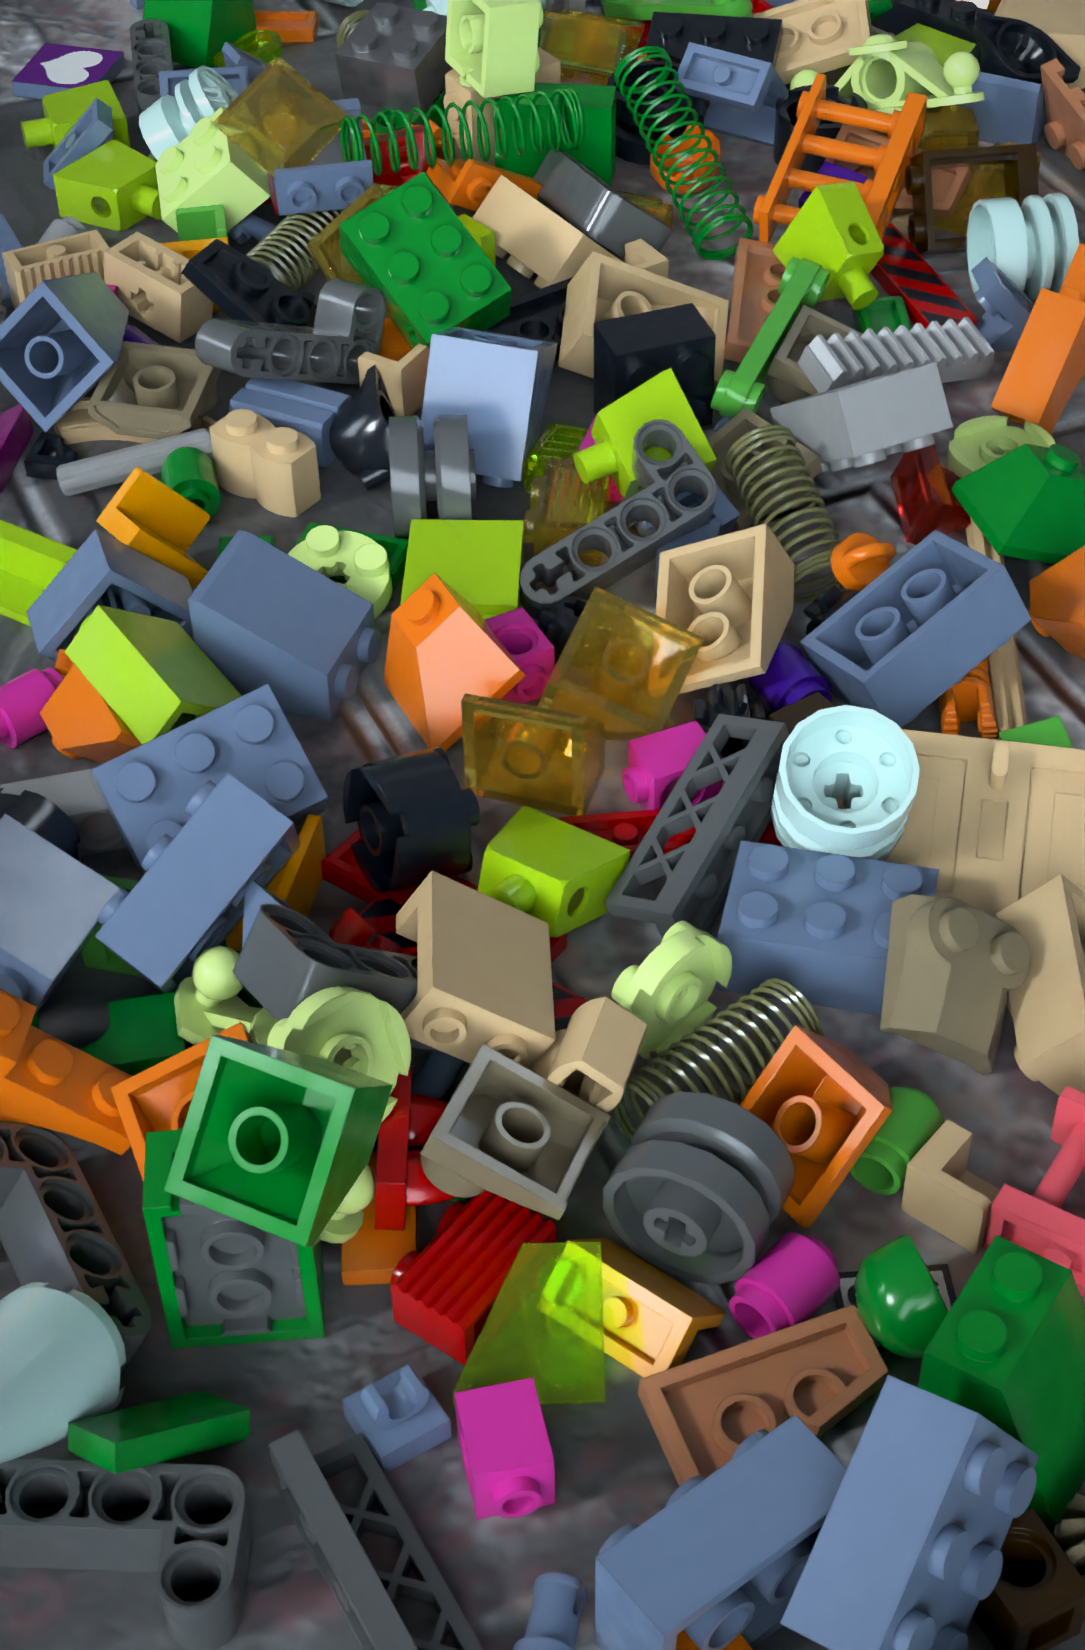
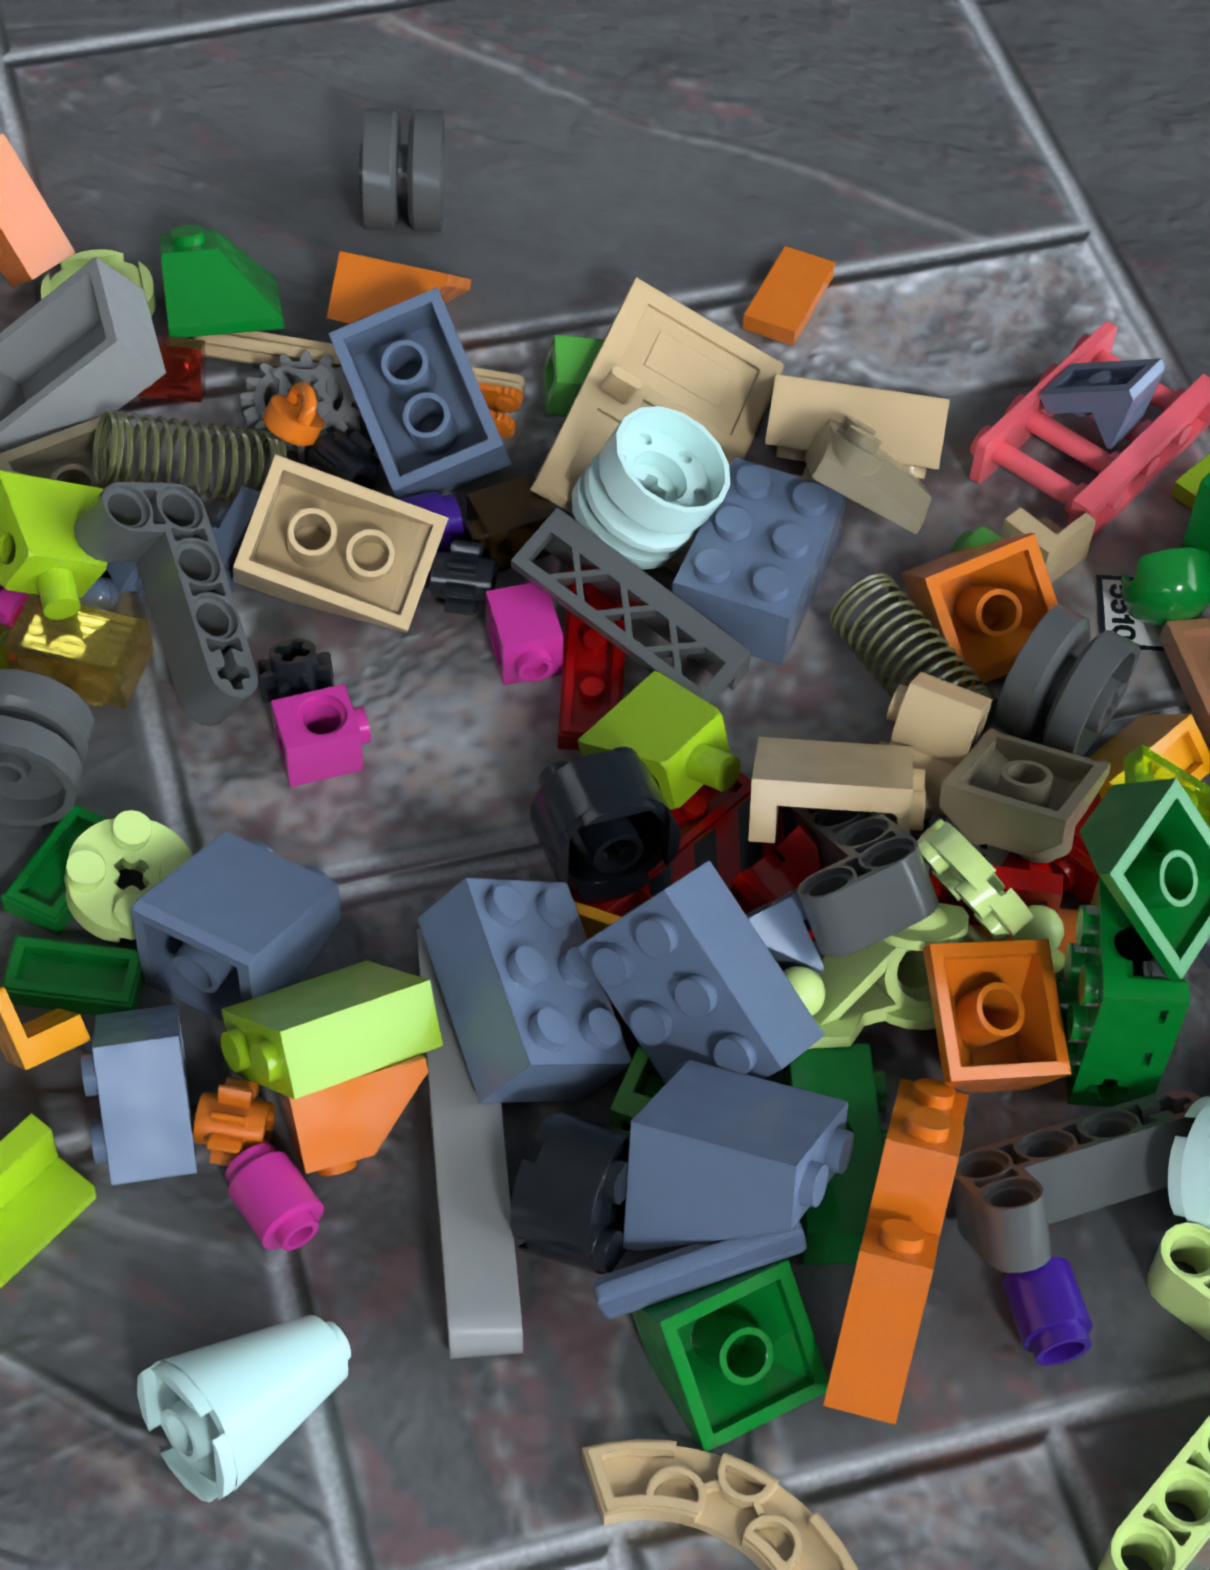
camera: 85 degrees left, 10 degrees up
(437, 655) = (346, 784): orange slope -> none
(472, 556) = (179, 759): lime brick -> none
(531, 754) = (481, 729): clear yellow slope -> none
(621, 667) = (397, 641): clear yellow slope -> none
(674, 985) = (841, 667): yellowish green plate -> none
(785, 1285) = (1156, 671): dark pink brick -> none

